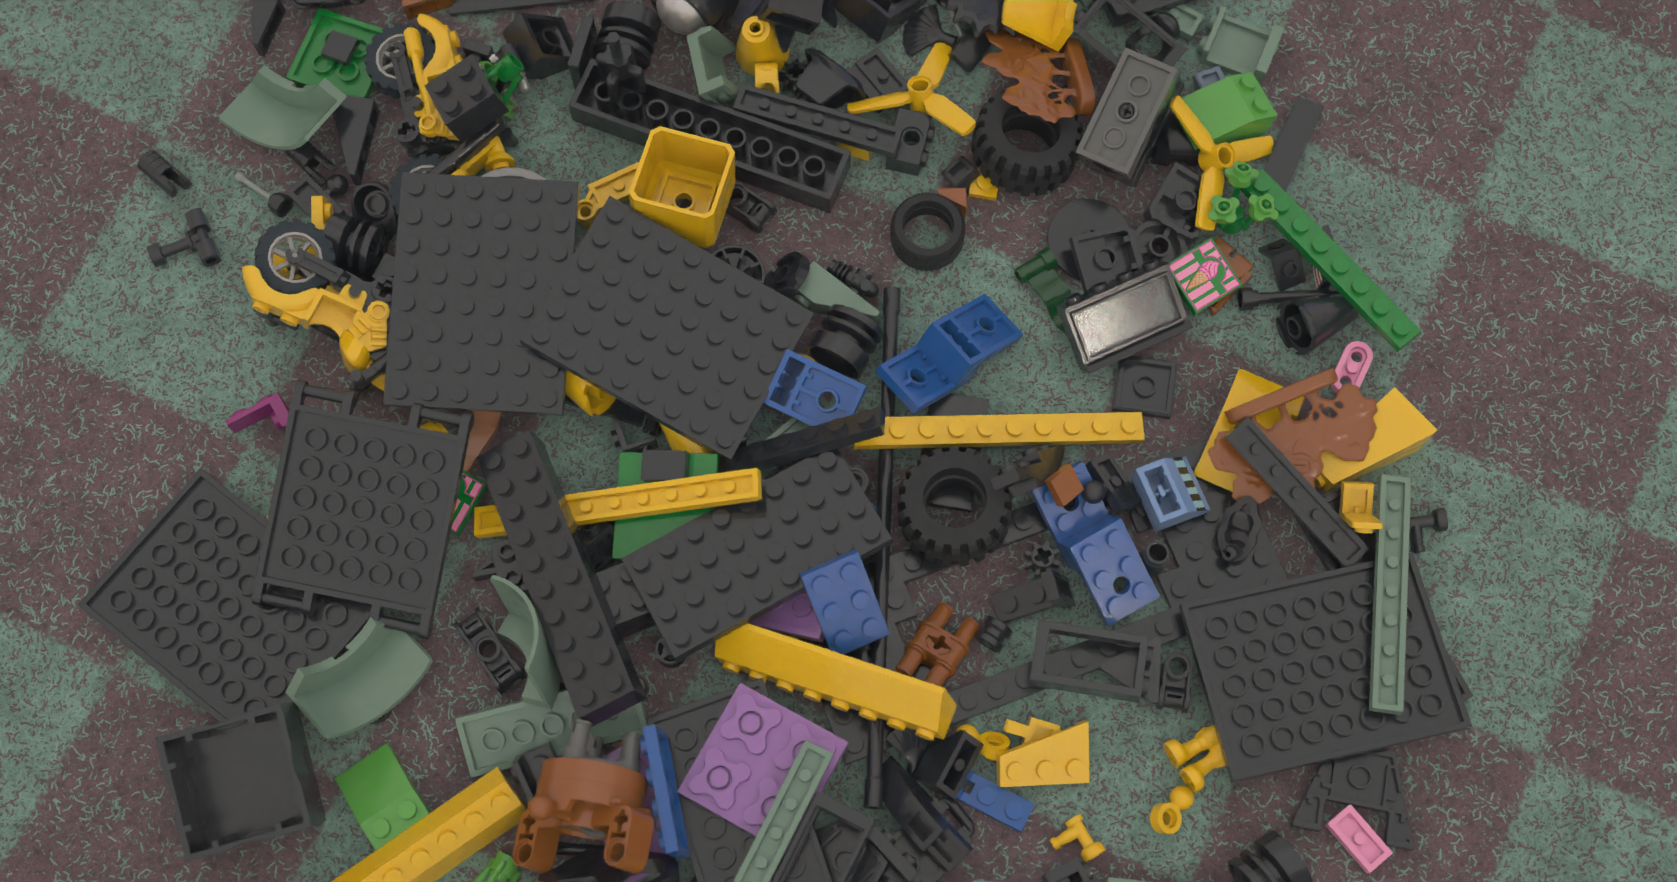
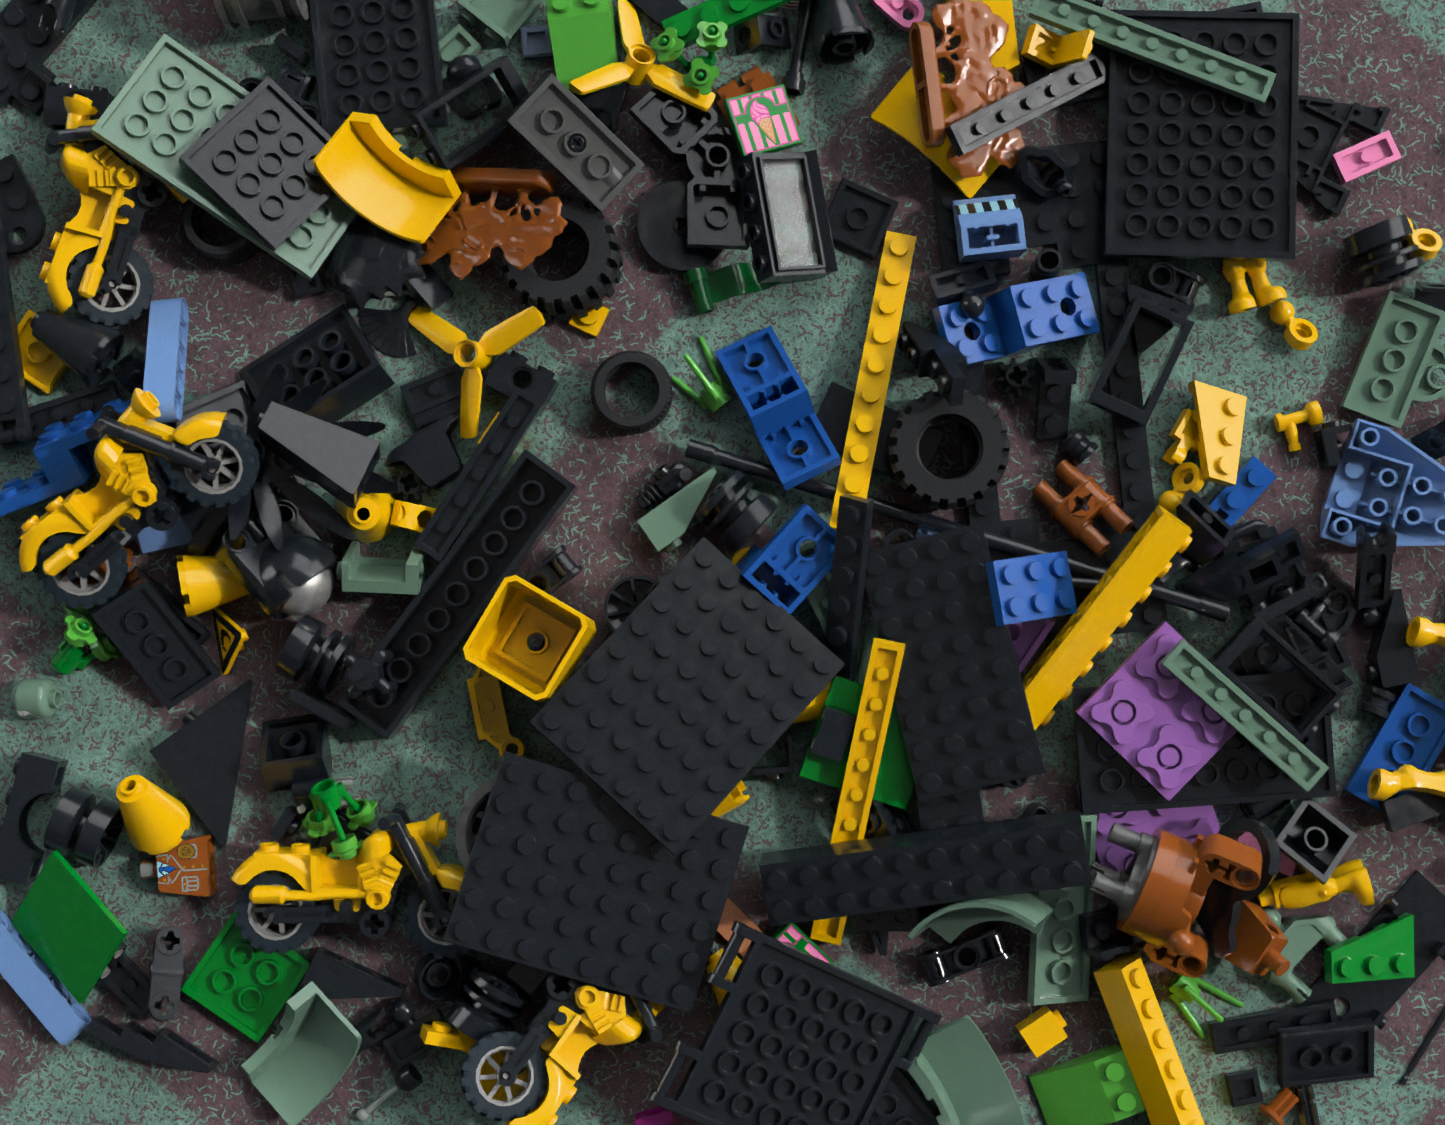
camera: 80 degrees left, 15 degrees up
(340, 48) = (240, 976): black tile -> none
(433, 740) = (1042, 1030): none -> yellow brick
(466, 98) = (368, 851): black brick -> none
(667, 802) = (1164, 813): blue plate -> none
(789, 275) = (646, 540): black tile -> none
(946, 300) = (713, 395): none -> bright green plant
(956, 195) = (601, 351): dark orange slope -> none
(960, 173) = (572, 338): black tile -> none
(1064, 485) = (963, 332): dark orange tile -> none

